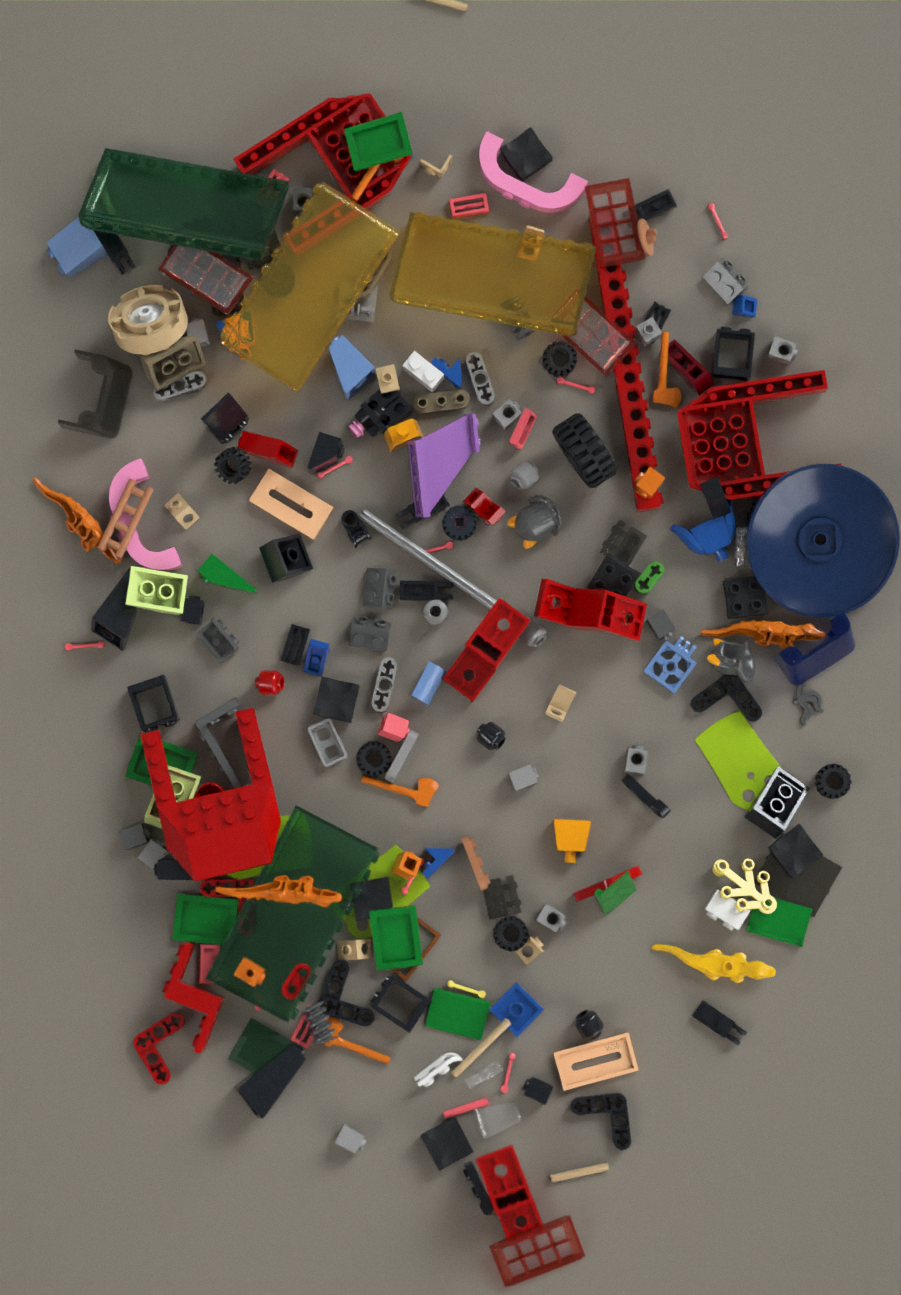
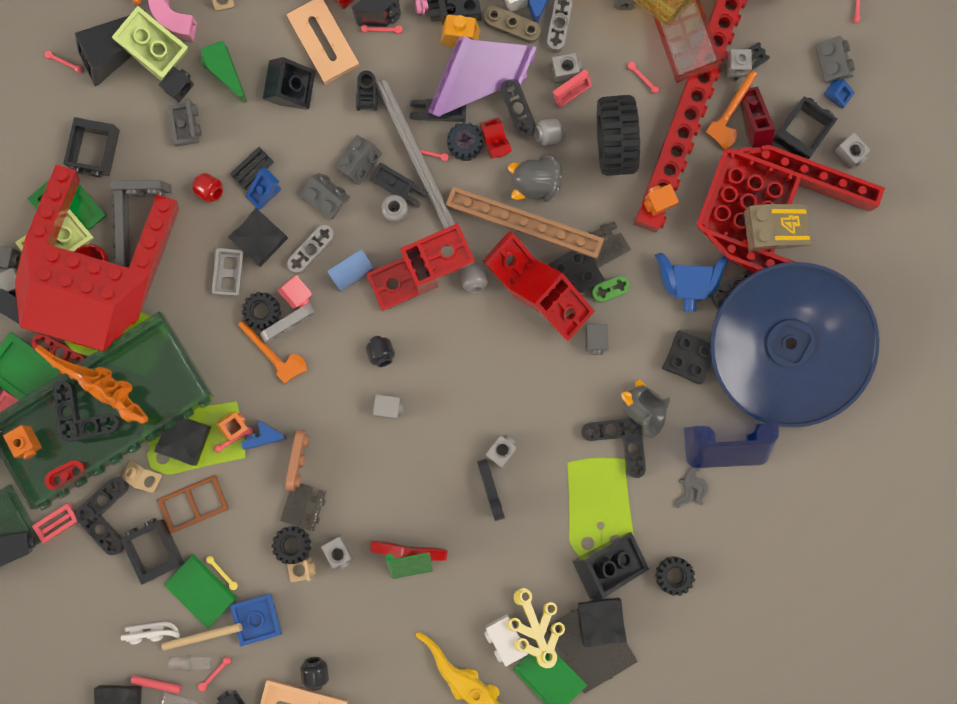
camera: 25 degrees right, 0 degrees up
(287, 933) = (79, 425): none -> black beam
(319, 1023) = (62, 527): dark grey piece -> none
(338, 1026) = (71, 545): orange piece -> none
(351, 1139) = (31, 651): light grey brick -> none
(396, 937) = (182, 487): green piece -> none
(488, 463) = (526, 110): none -> black beam
(548, 564) = (525, 223): none -> medium nougat plate
(559, 347) = (642, 33): black tyre -> none
(560, 702) = (462, 357): tan bracket -> none
(571, 837) = (399, 487): light orange torso -> none
(681, 652) = (600, 374): medium blue piece -> none
(715, 497) = (715, 248): black slope -> none
(740, 547) = (712, 308): clear axle -> none
(756, 452) = (777, 226): none -> dark tan slope
(769, 632) = (693, 403): orange animal -> none

